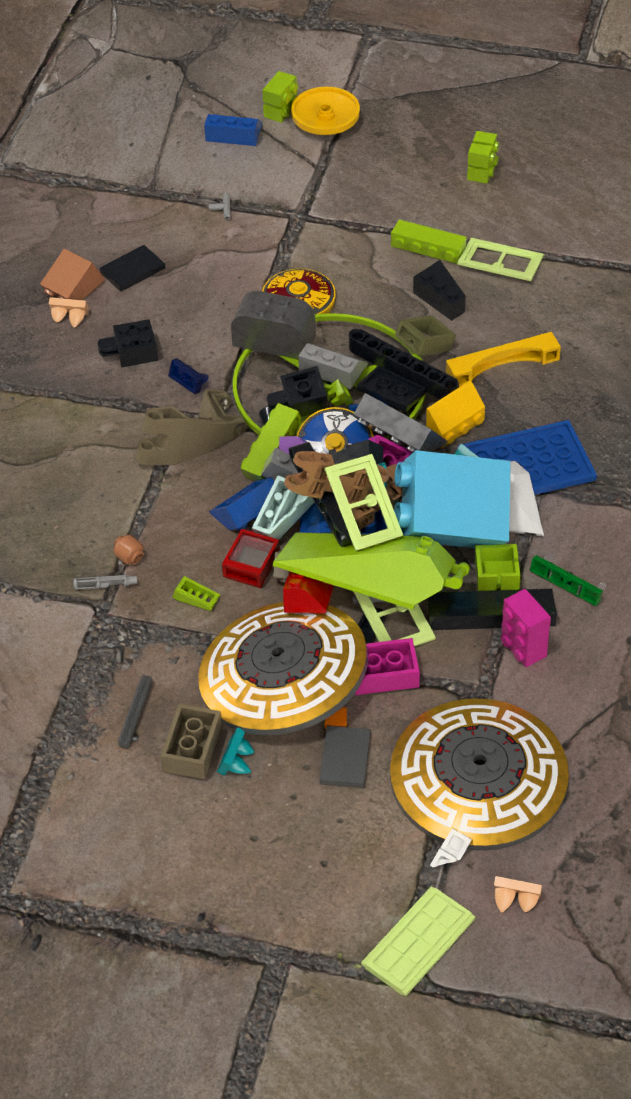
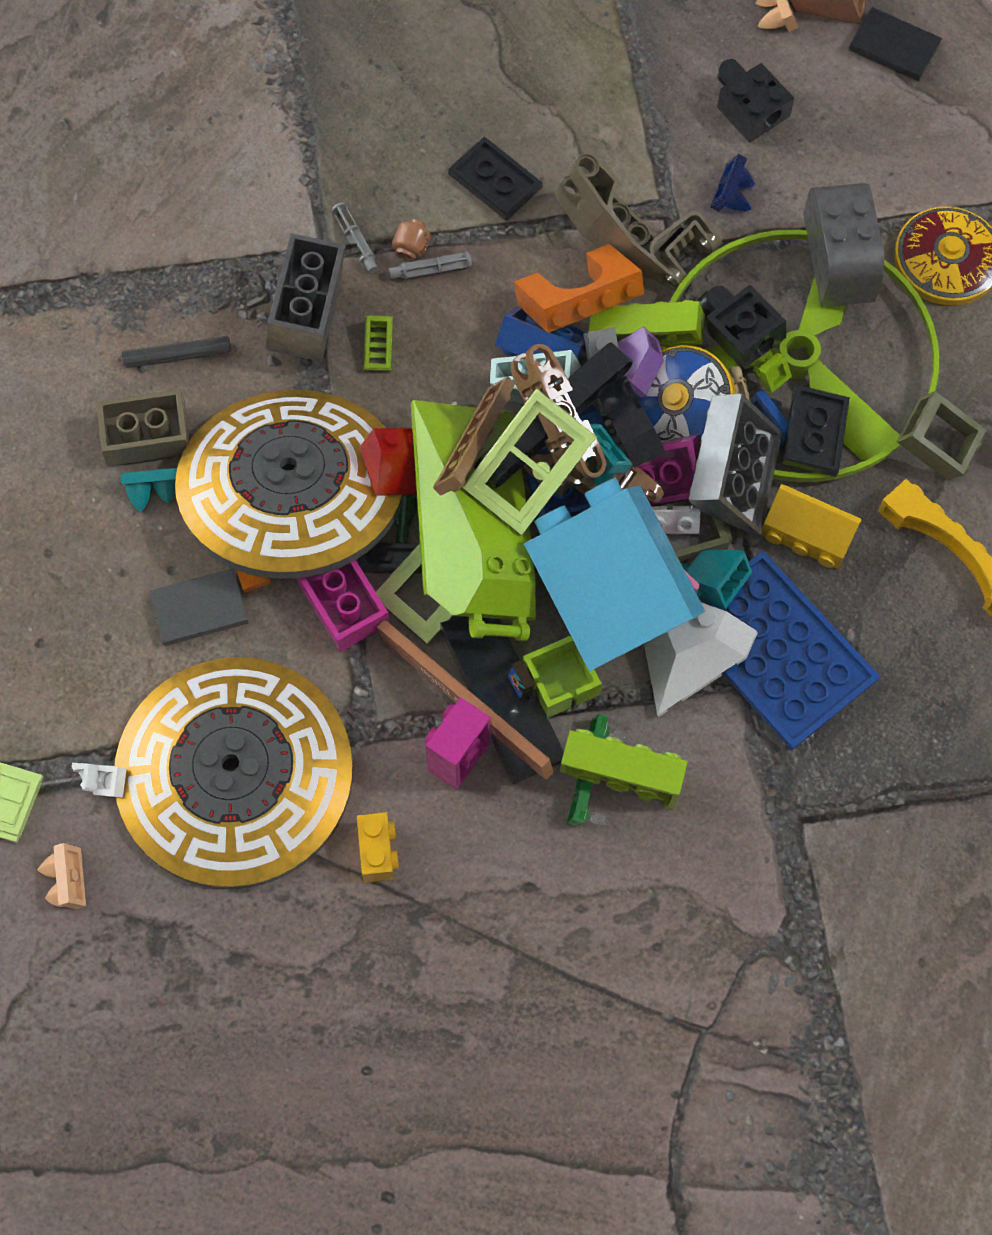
camera: 65 degrees right, 20 degrees up
(104, 494) = (495, 178): none -> black tile
(149, 610) = (305, 297): none -> flat silver brick
(153, 547) = (431, 266): none -> light grey piece
(237, 477) = (557, 307): none -> orange arch
(250, 558) = (458, 376): red window -> none
(318, 537) = (473, 437): none -> medium nougat plate
(332, 364) = (820, 339): light grey slope -> none
(396, 360) = (867, 416): black beam -> none
(486, 620) = (455, 690): none -> nougat tile
(491, 588) = (520, 679): none -> dark brown tile
(572, 705) = (375, 847): none -> yellow brick
(579, 550) = (624, 766): none -> lime wedge

